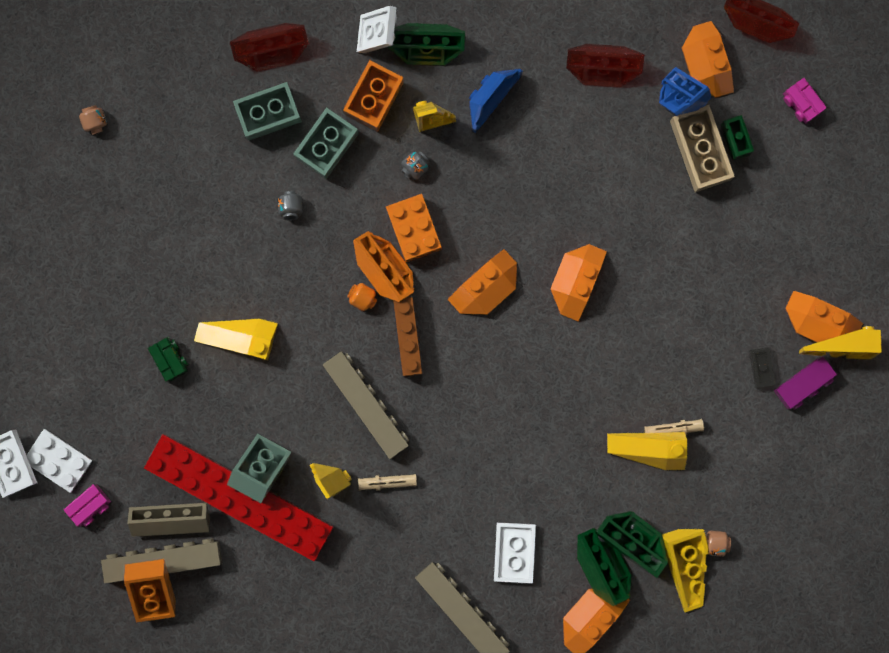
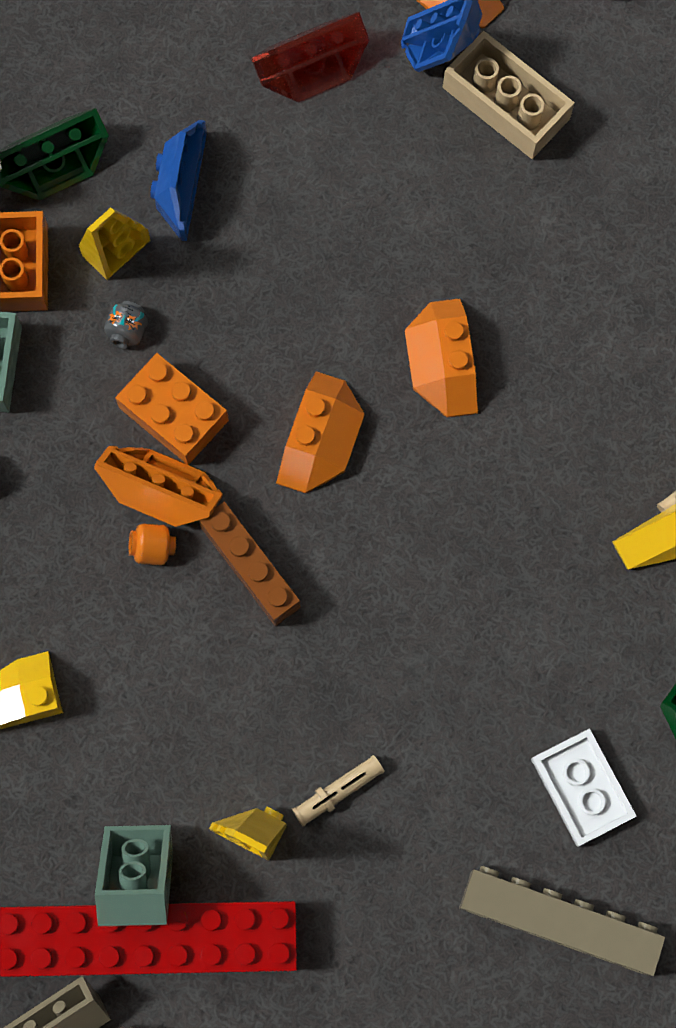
camera: 30 degrees left, 10 degrees down
(366, 406) = (244, 695): dark tan brick -> none
(737, 137) = (546, 55): dark green brick -> none

